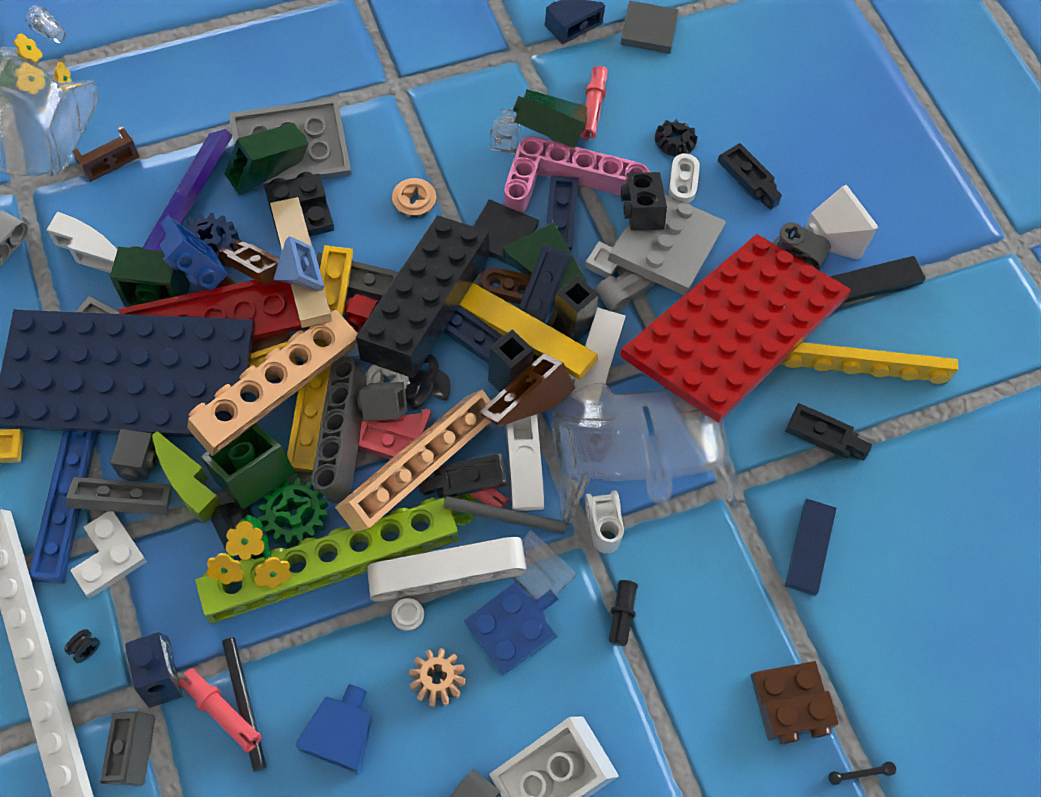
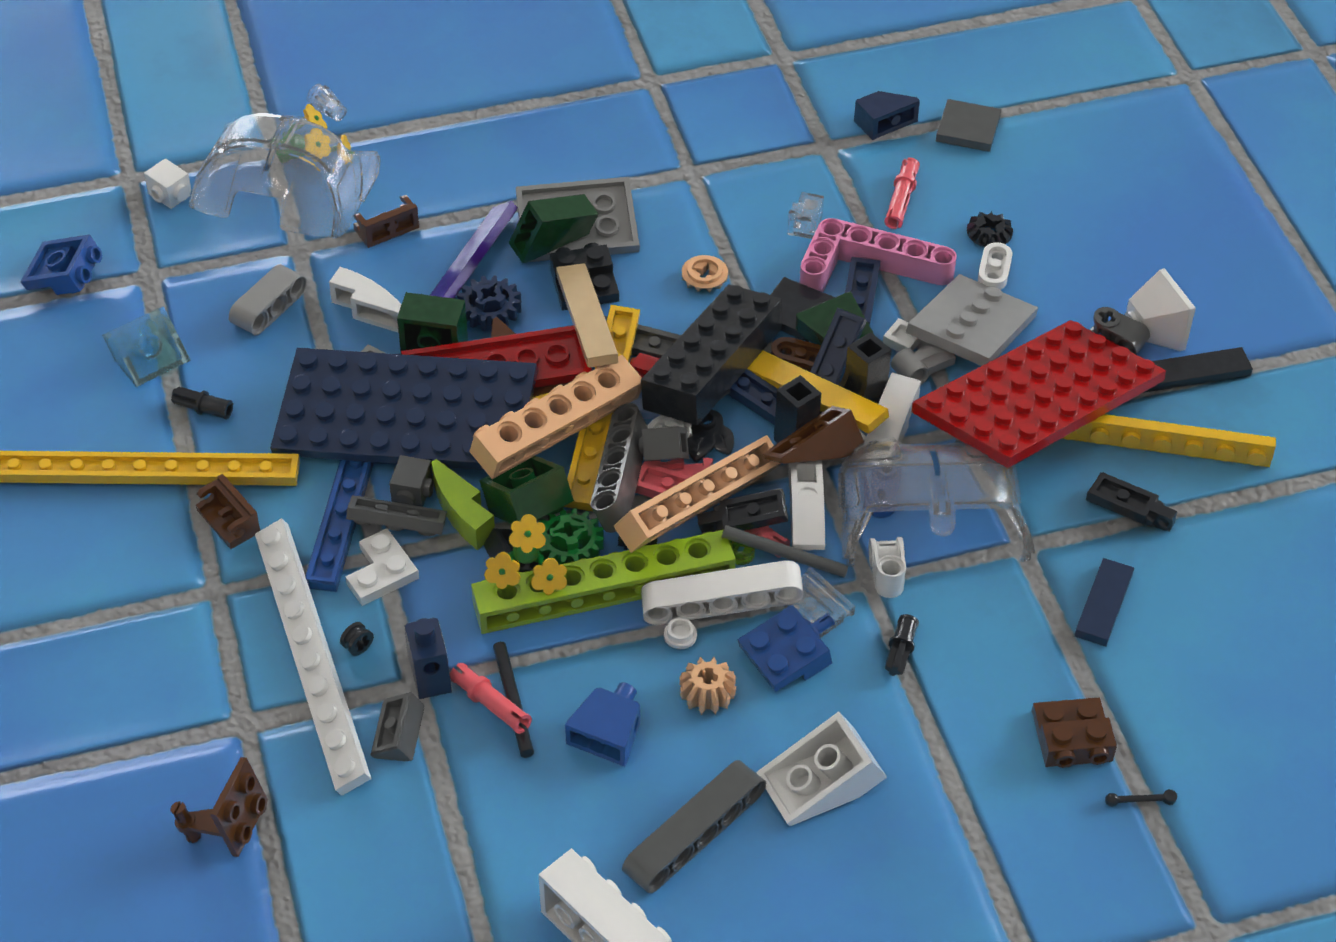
camera: 10 degrees right, 15 degrees down
(191, 255) = (474, 297): blue plate -> none
(250, 261) = (537, 314): reddish brown hinge -> none
(299, 265) = (586, 314): medium blue slope -> none
(551, 116) = (853, 198): dark green slope -> none
(644, 201) = (948, 279): black brick -> none
(751, 175) = (1068, 266): black hinge -> none

